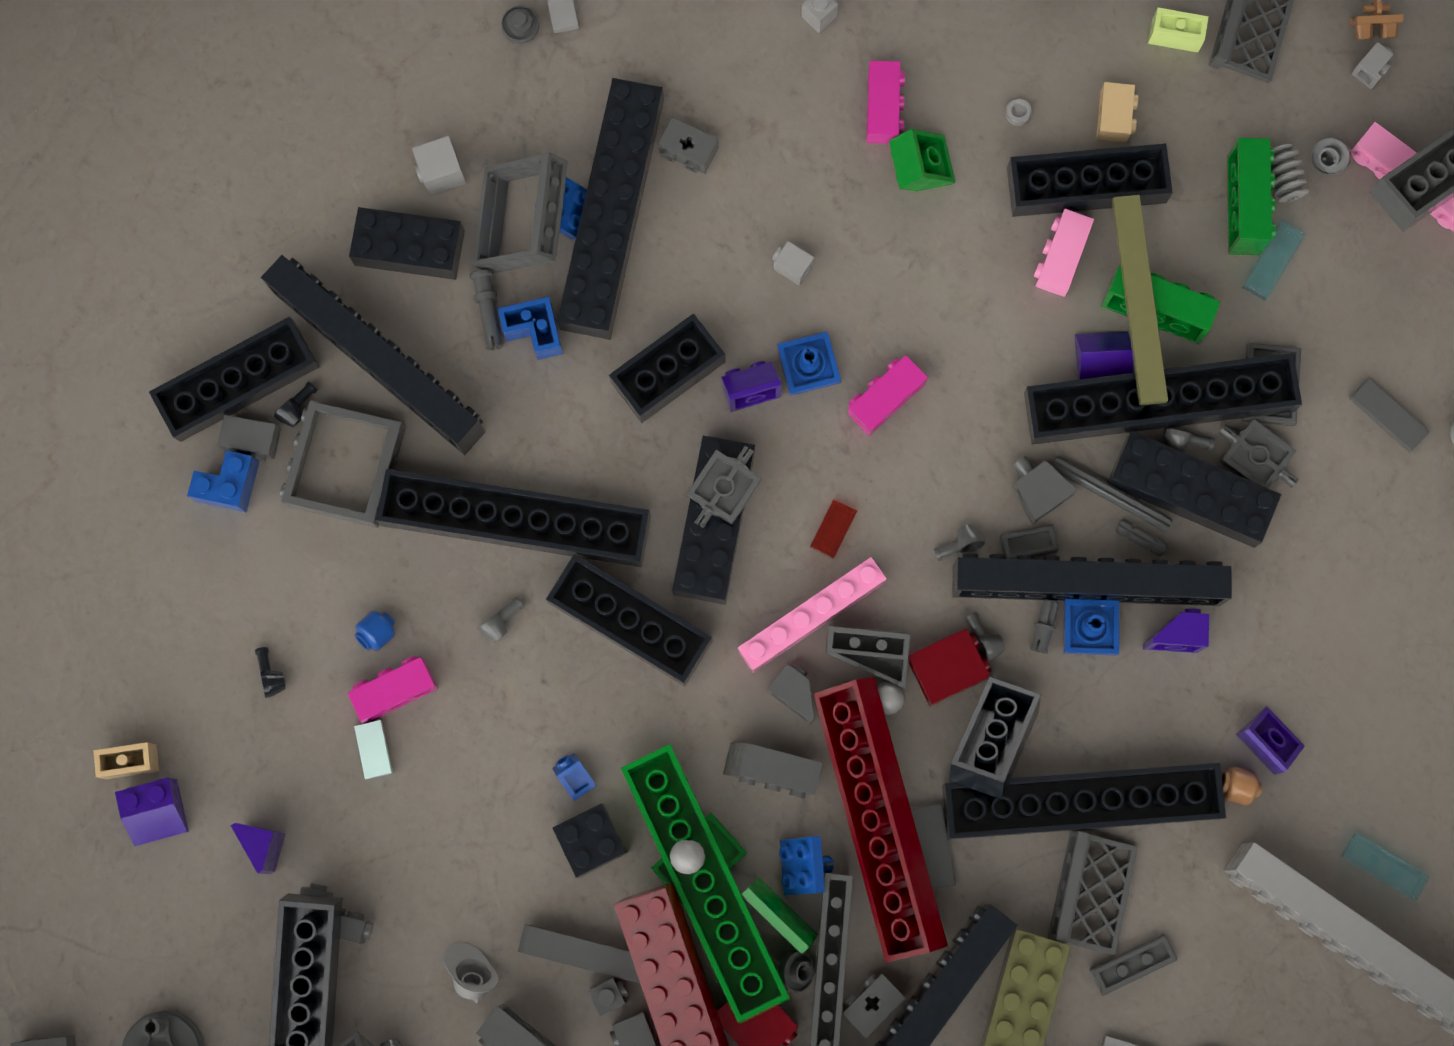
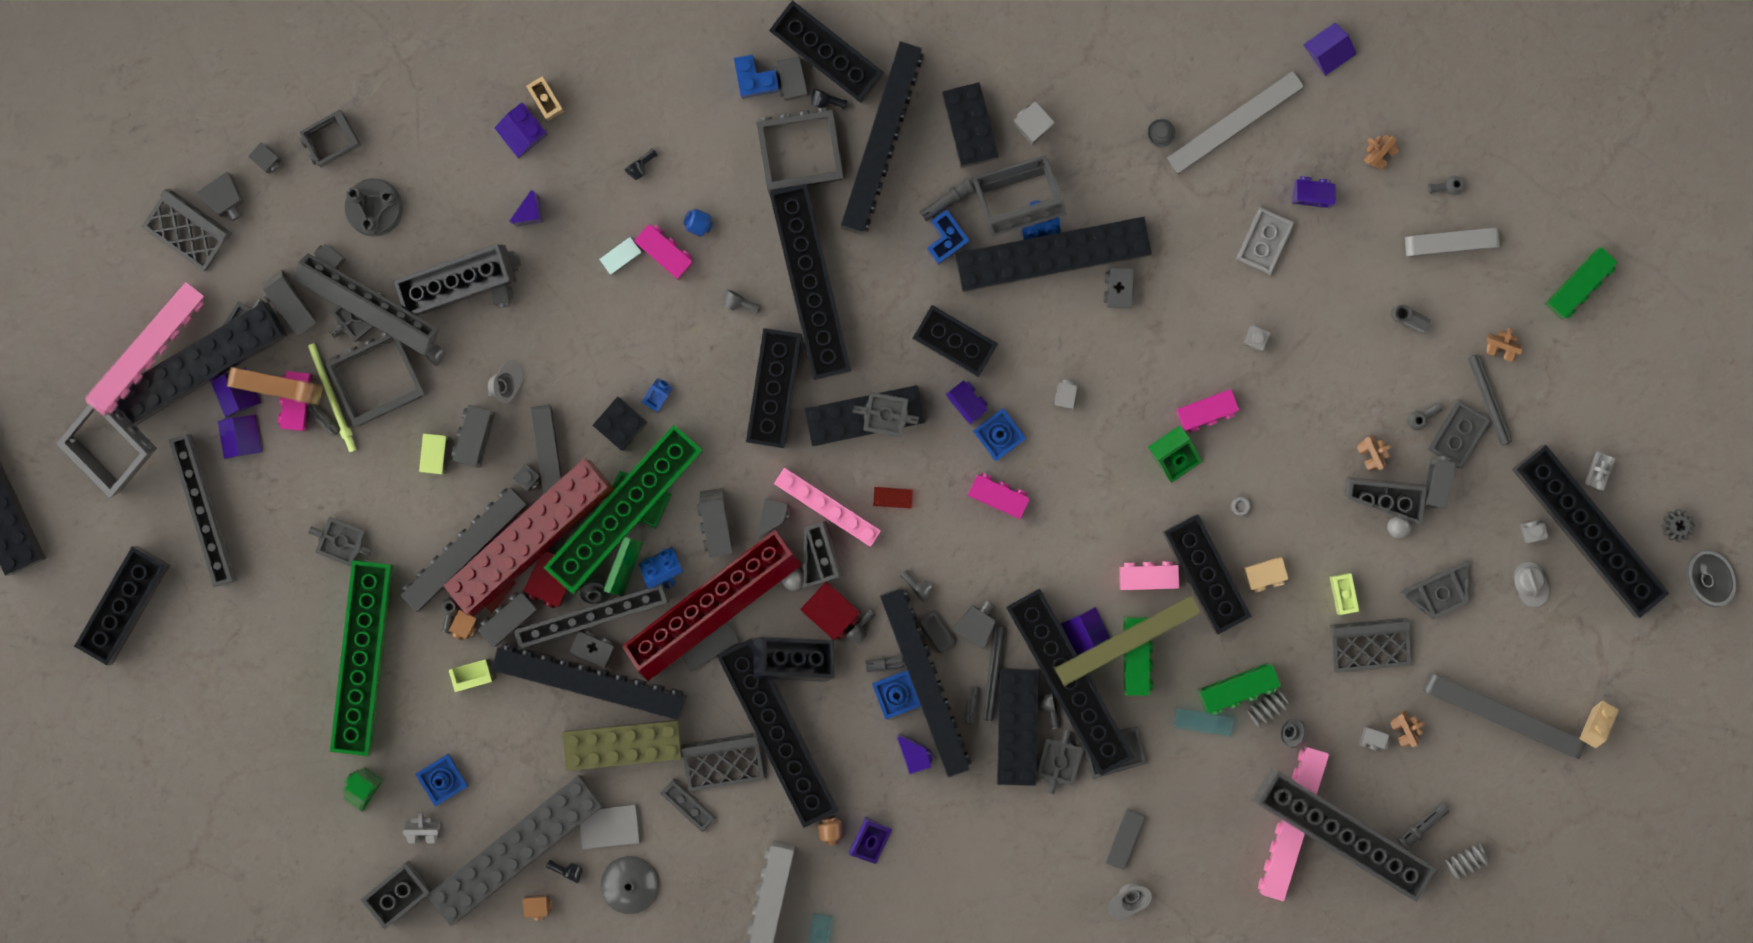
camera: 65 degrees right, 10 degrees up
(687, 856) = (633, 492): light grey piece -> none

